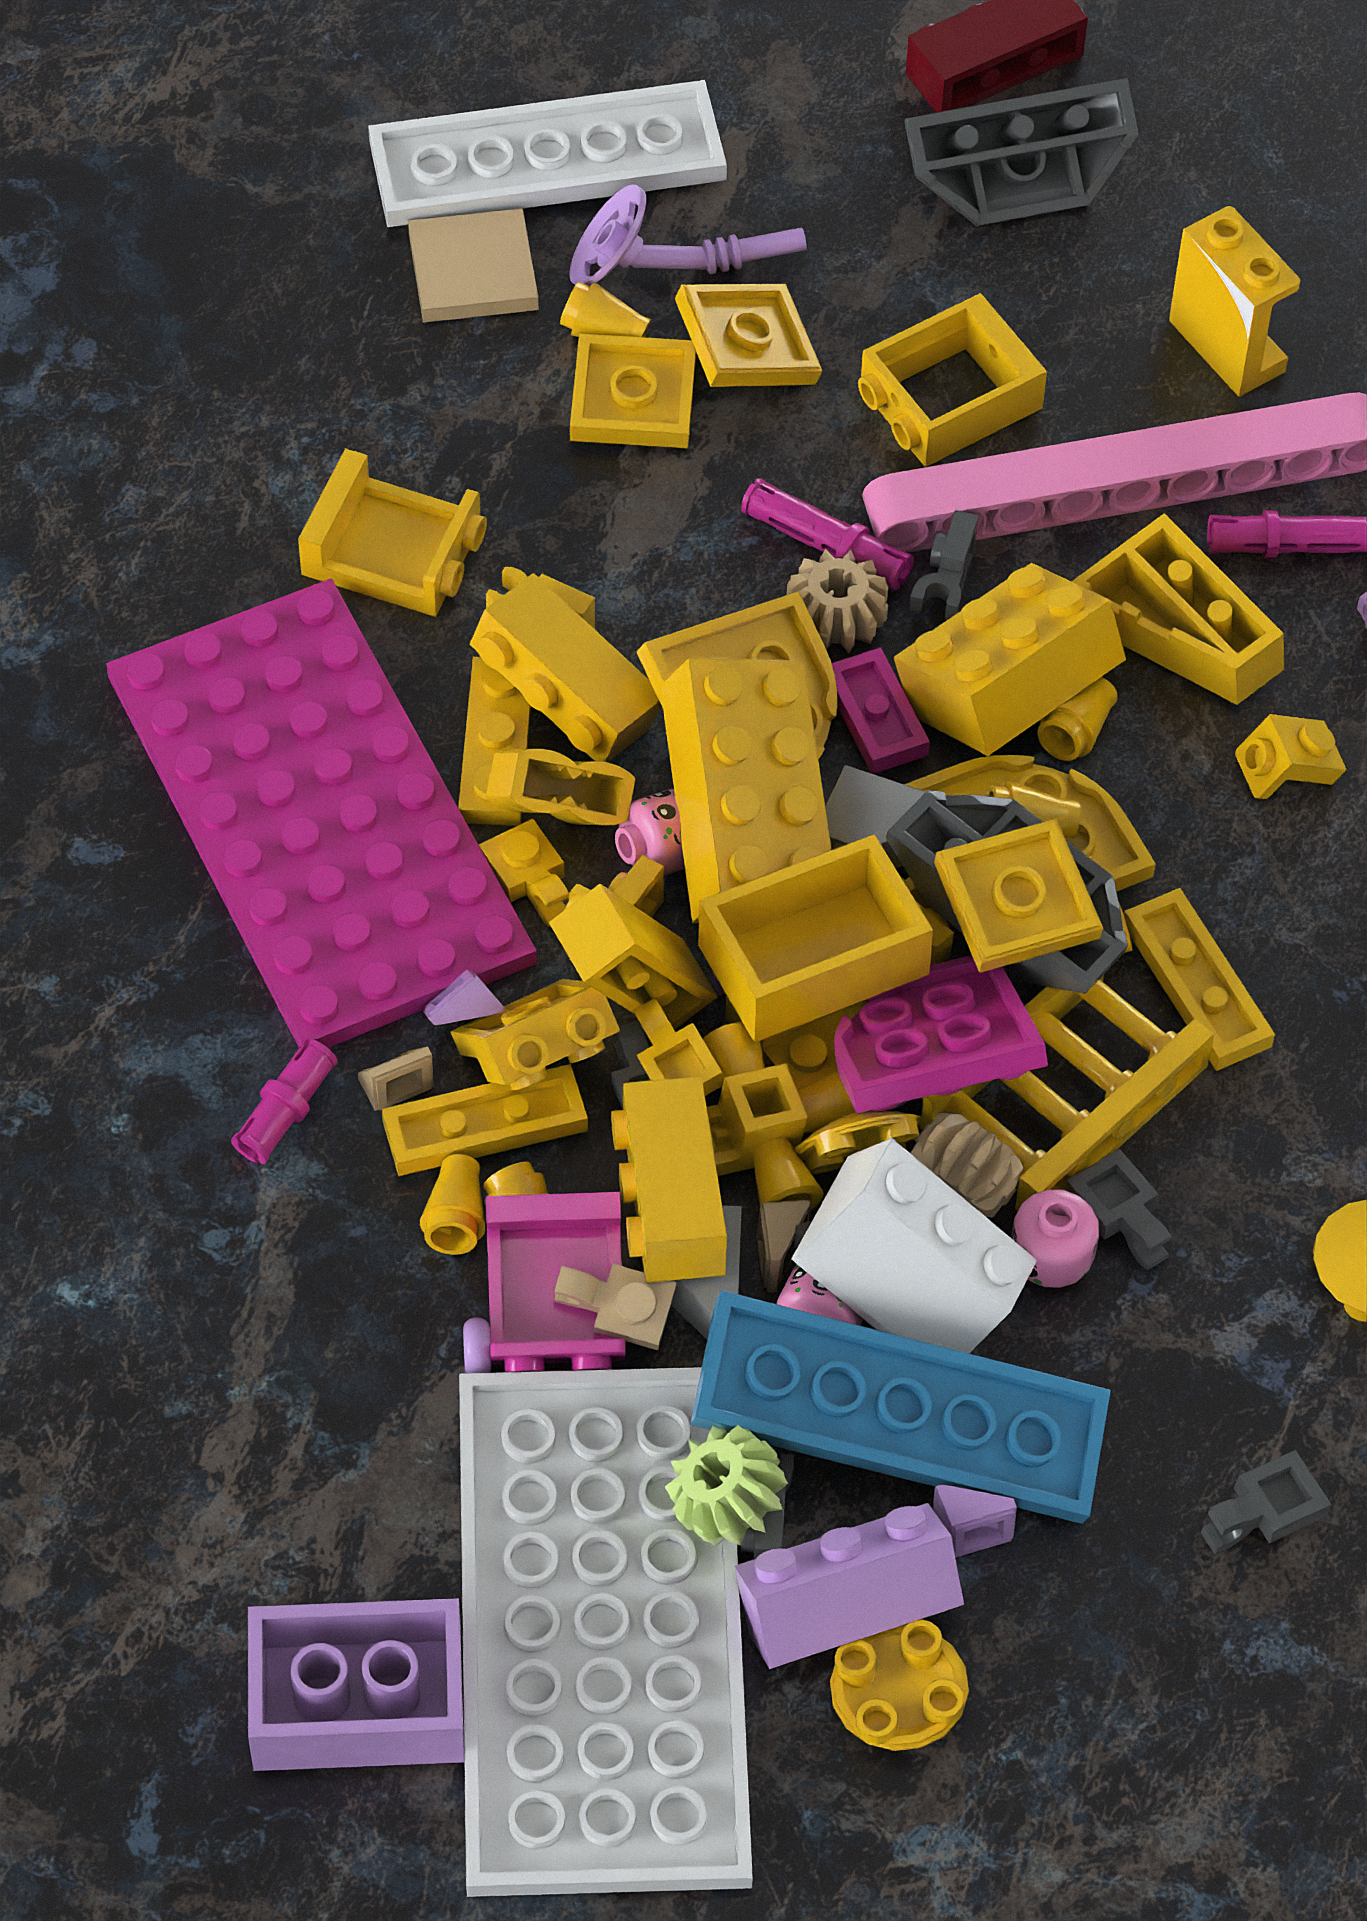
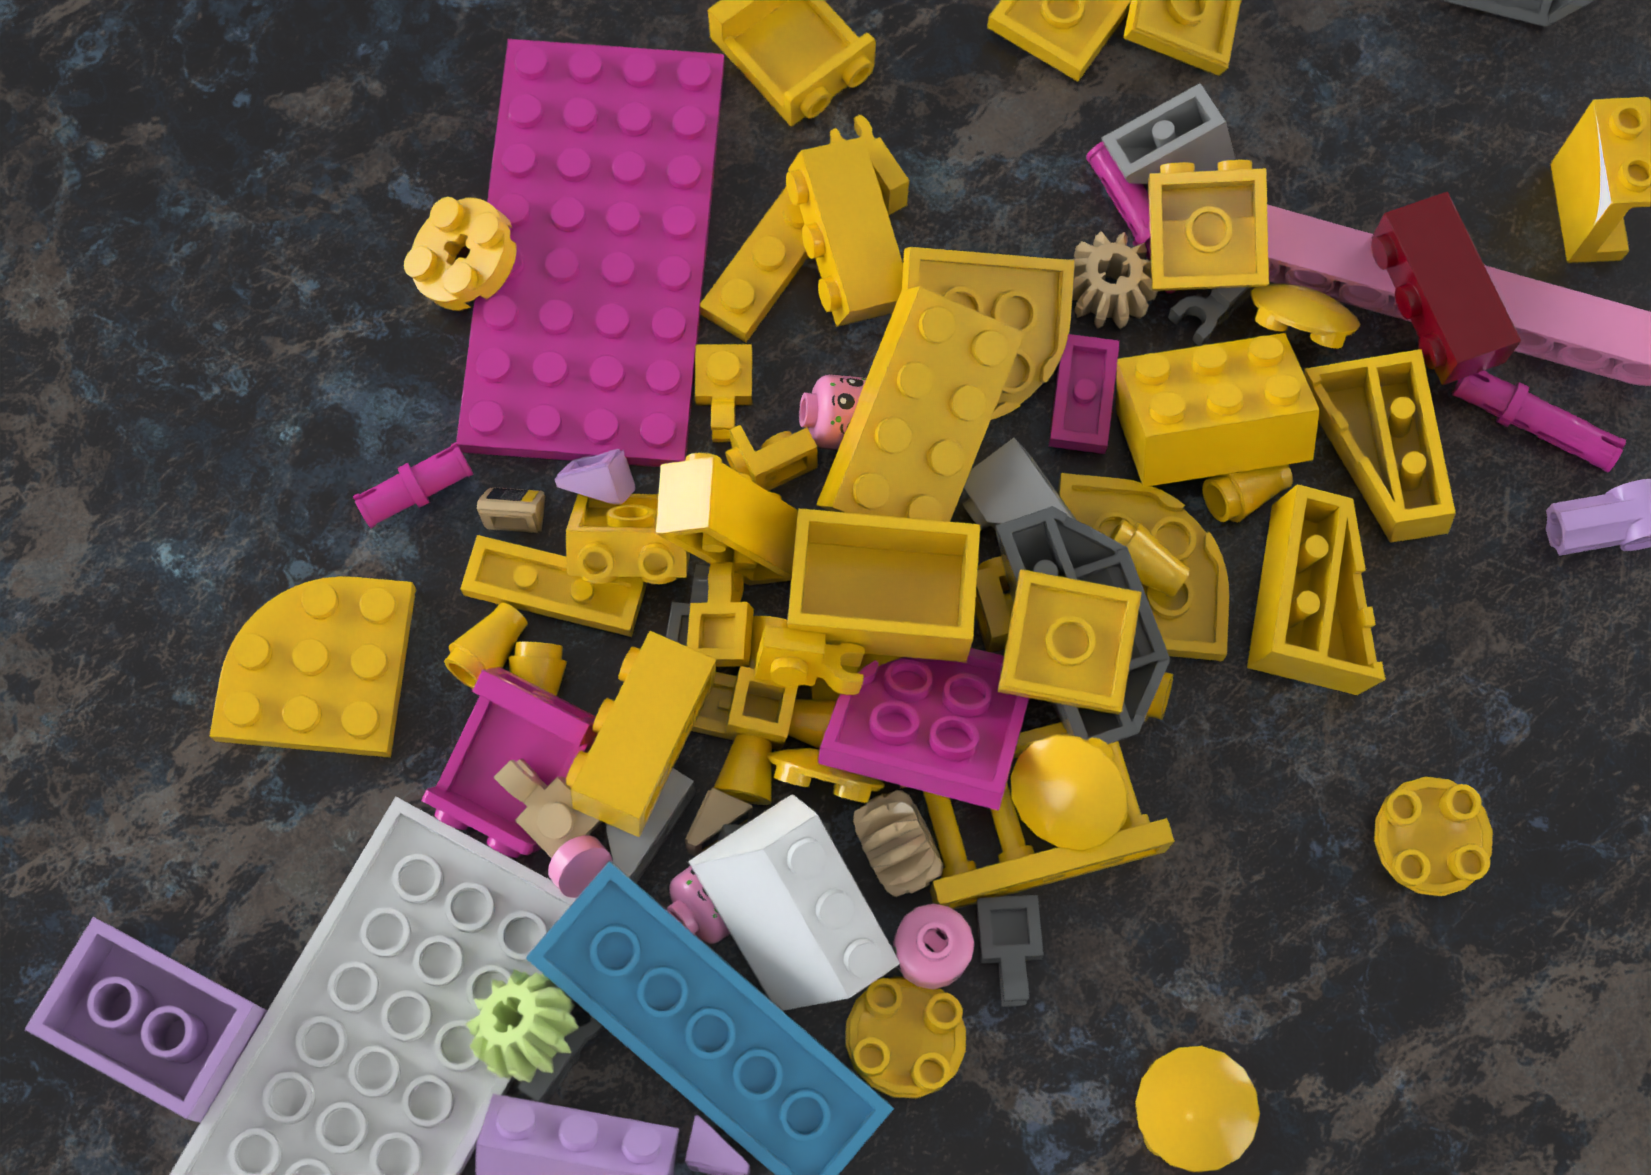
camera: 30 degrees right, 15 degrees up
(170, 850) = (449, 229): none -> yellow plate
(300, 1312) = (319, 668): none -> yellow plate
(477, 1346) = (425, 776): lavender piece -> none
(558, 786) = (764, 327): yellow brick -> none
(682, 1335) = (577, 864): none -> bright pink tile
(777, 1032) = (801, 656): none -> yellow plate
(820, 449) = (1174, 132): none -> light grey slope
(905, 501) = (1208, 226): none -> yellow plate
(994, 347) = (1369, 87): yellow window -> none
(1016, 540) = (1305, 310): none -> yellow dish
(1079, 1331) = (905, 1037): none -> yellow dish
(1098, 1028) = (1070, 791): none -> yellow dish
(1150, 454) = (1444, 288): none -> dark red brick
(1198, 977) = (1200, 775): yellow plate -> none
(1199, 776) = (1312, 596): none -> yellow wedge
(1288, 750) = (1410, 613): yellow bracket -> none

